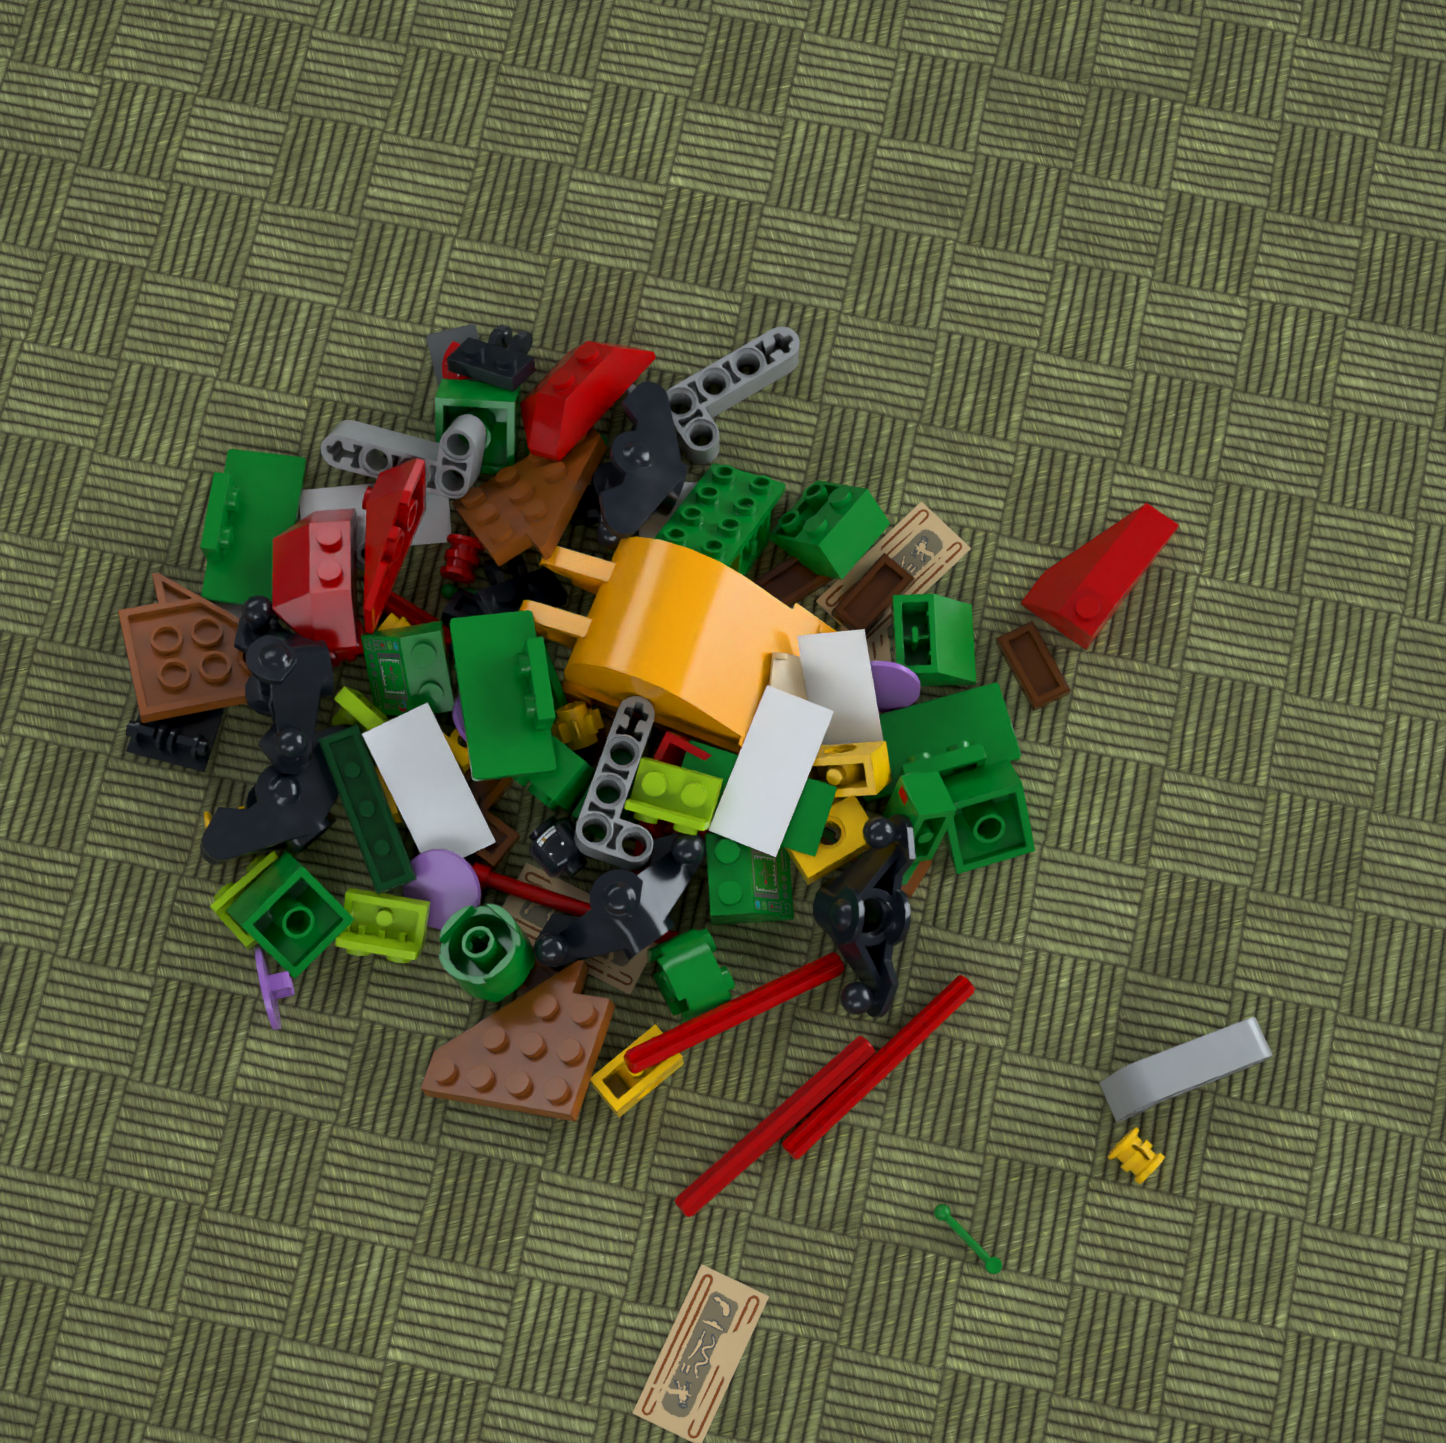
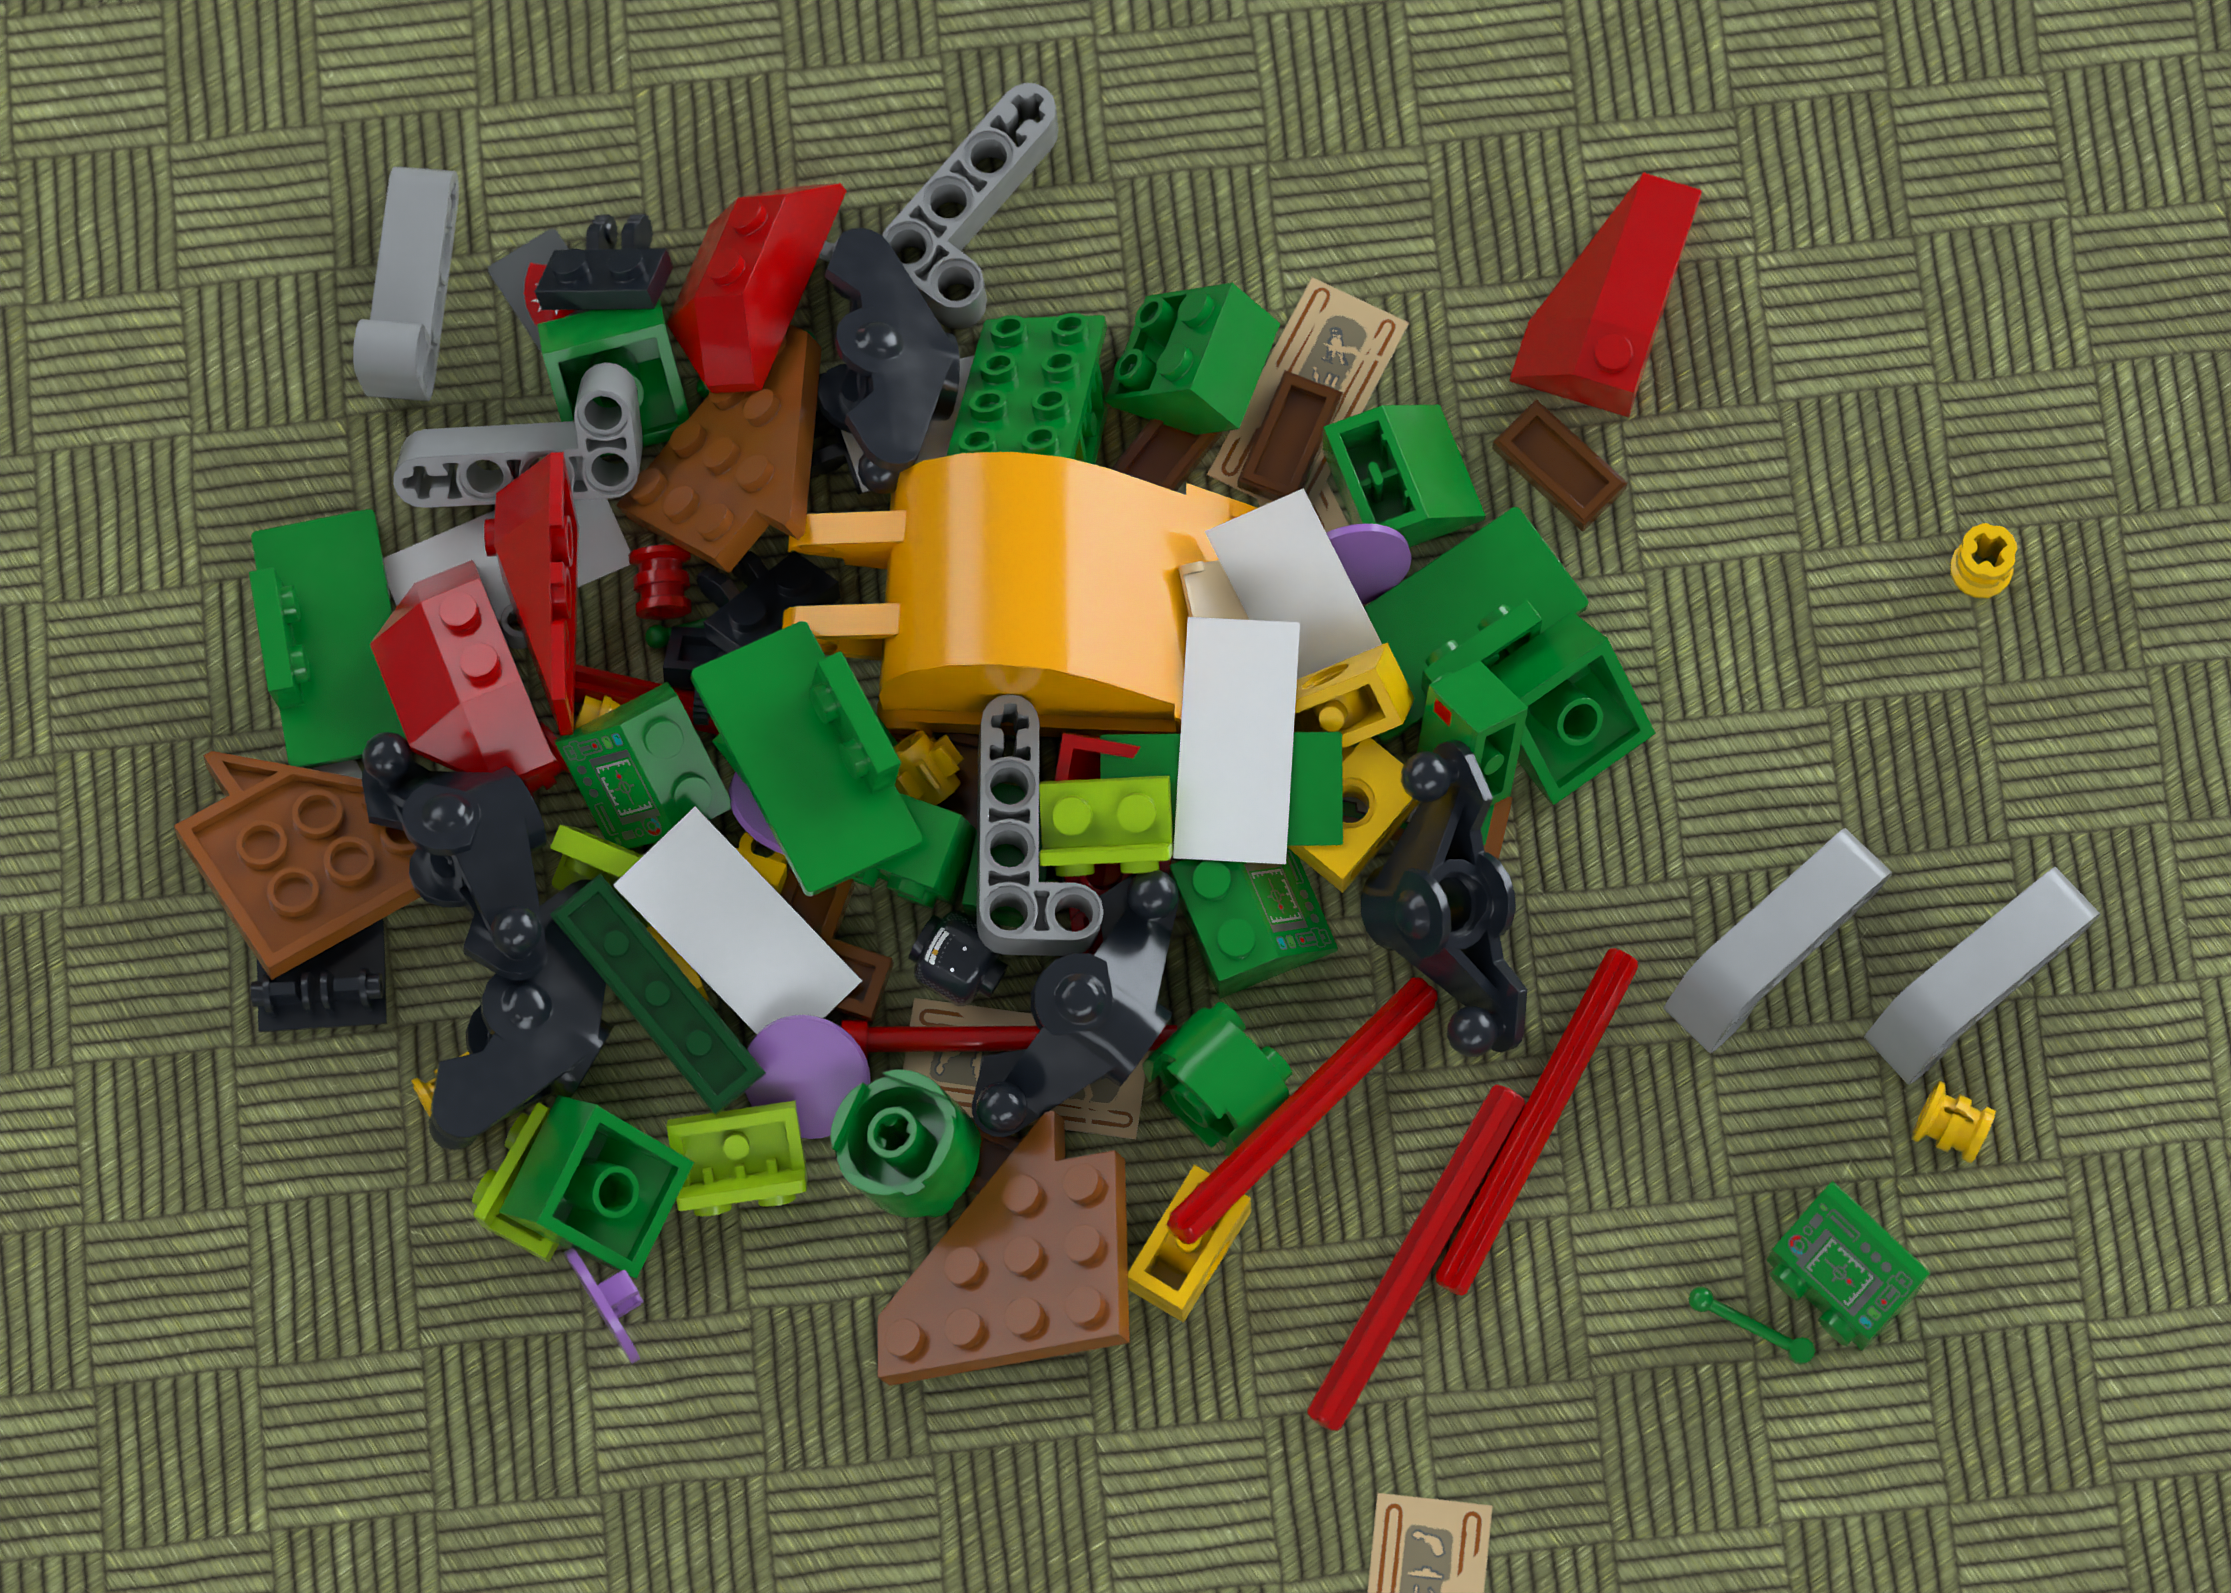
camera: 15 degrees left, 0 degrees up
(359, 361) = (401, 341): none -> light grey beam
(1036, 1225) = (1846, 1268): none -> green slope
(1064, 1003) = (1775, 939): none -> light grey beam
(1270, 822) = (1984, 579): none -> yellow bush

